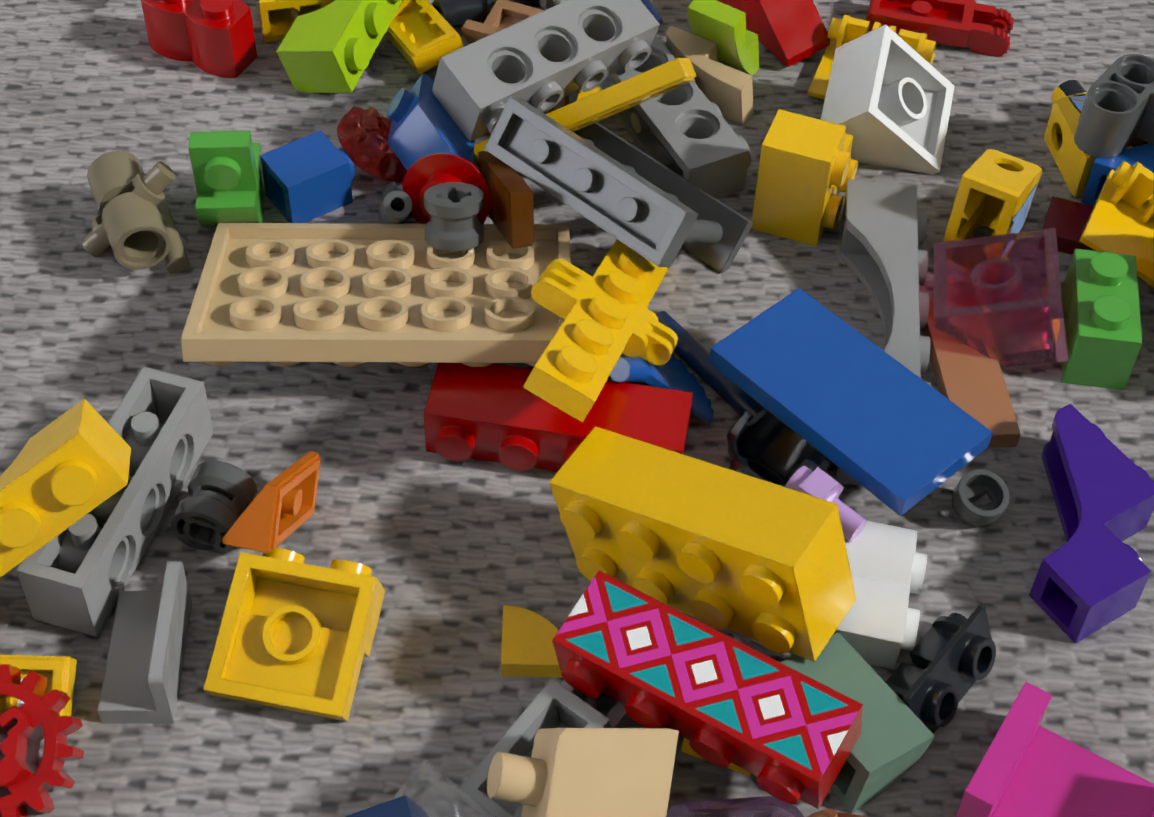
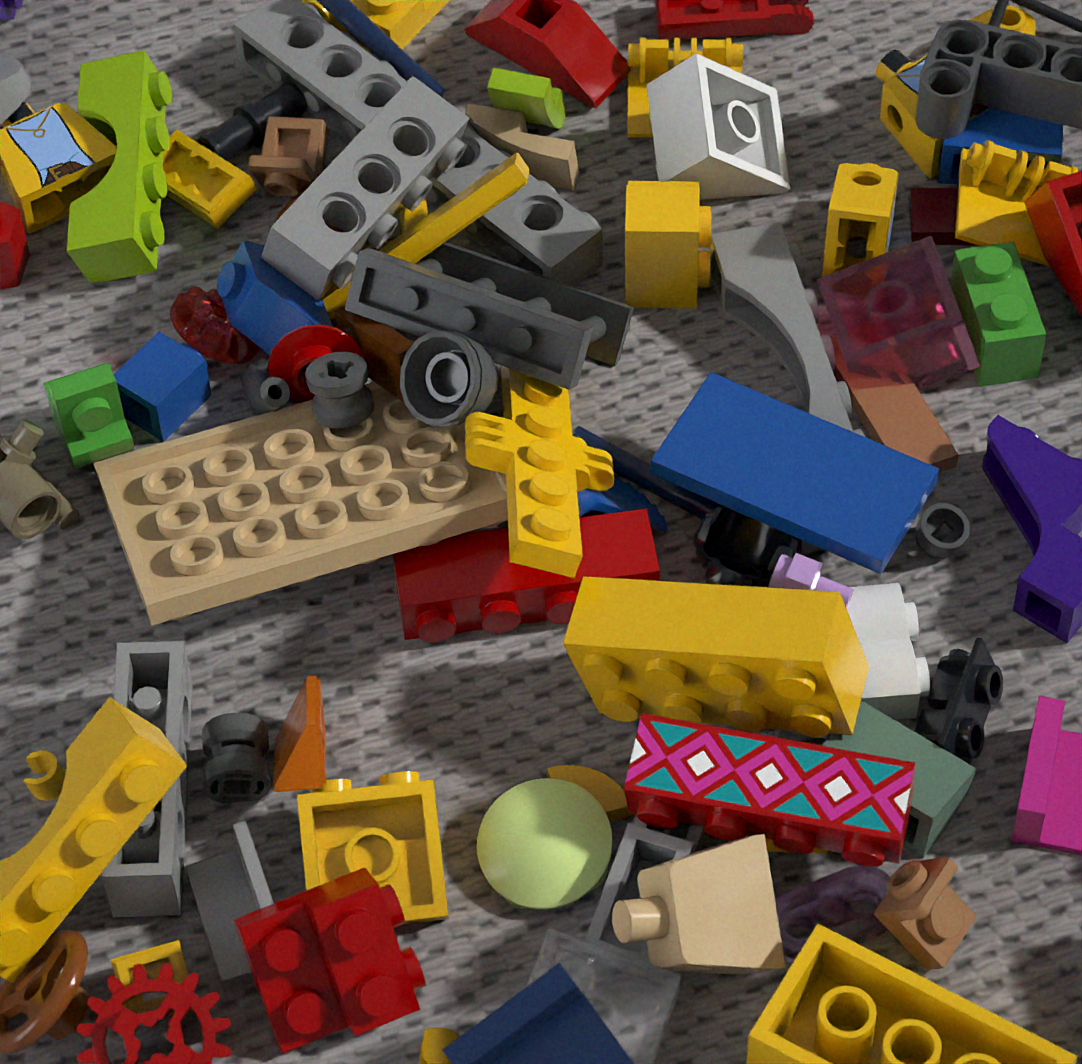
camera: 15 degrees left, 5 degrees up
(197, 722) = (331, 960): none -> red plate
(468, 677) = (545, 844): none -> yellowish green dish
(549, 223) = (447, 378): none -> dark grey helmet

